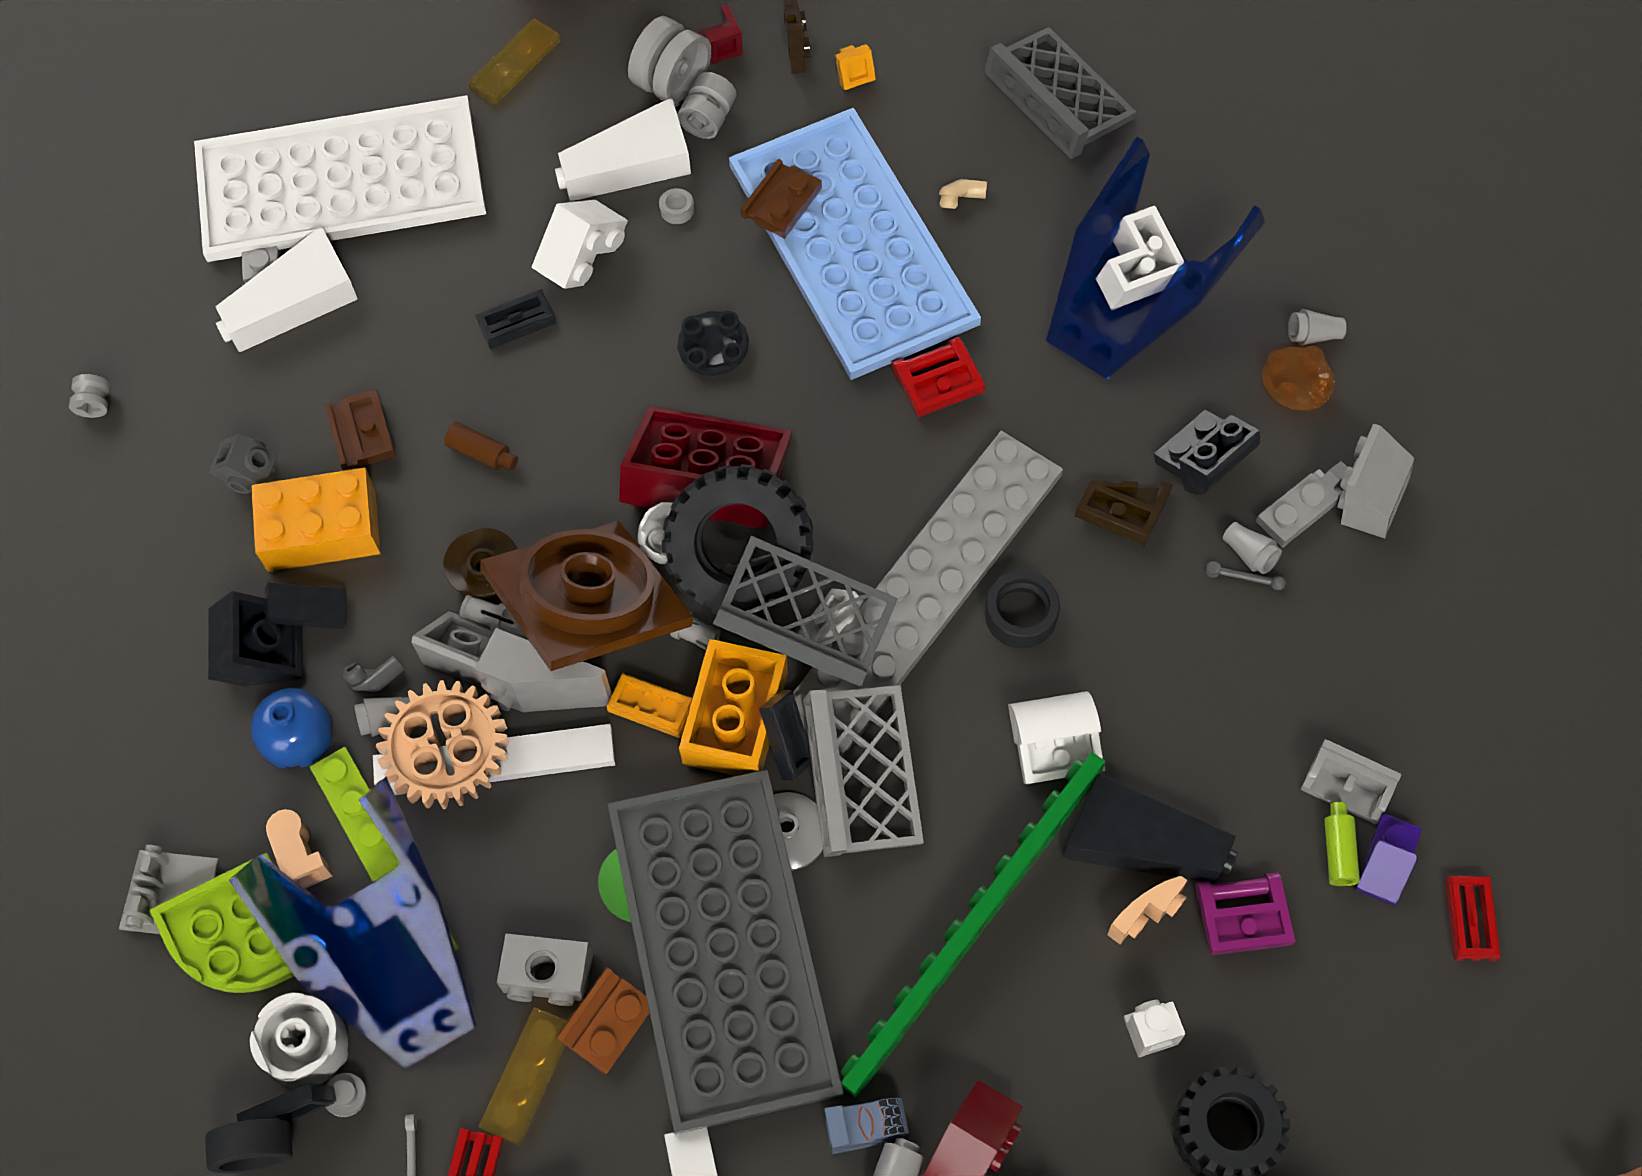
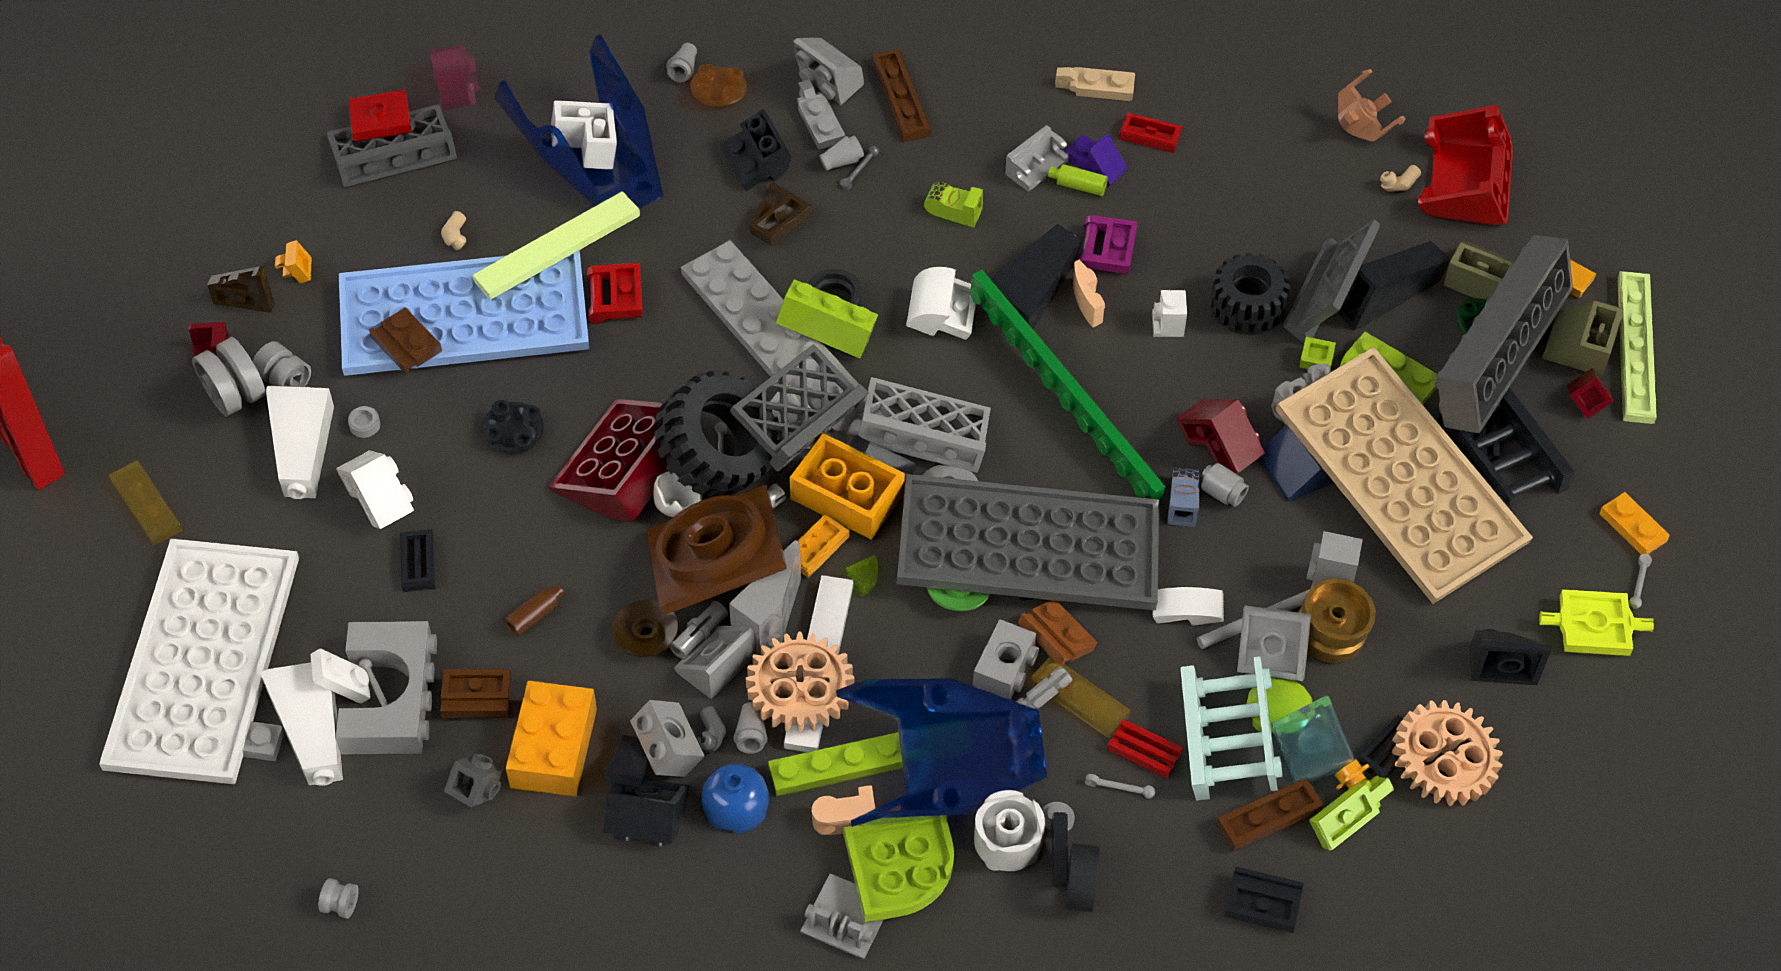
camera: 75 degrees left, 10 degrees down
(308, 379) = (402, 724): none -> light grey arch
(334, 297) = (340, 676): none -> white plate
(360, 628) = (667, 738): none -> light grey brick
(364, 317) = (366, 665): none -> light grey hinge
(507, 1026) = (1046, 688): none -> light grey axle
(630, 772) = (864, 575): none -> clear neon green tile
(970, 608) = (826, 318): none -> lime brick
(972, 293) = (556, 245): none -> yellowish green tile
(1089, 63) = (380, 115): none -> red plate
(1175, 104) = (453, 76): none -> clear pink brick
(1230, 704) = (955, 203): none -> lime leg
(1386, 587) = (901, 95): none -> reddish brown tile
(1527, 824) = (1096, 82): none -> tan hinge

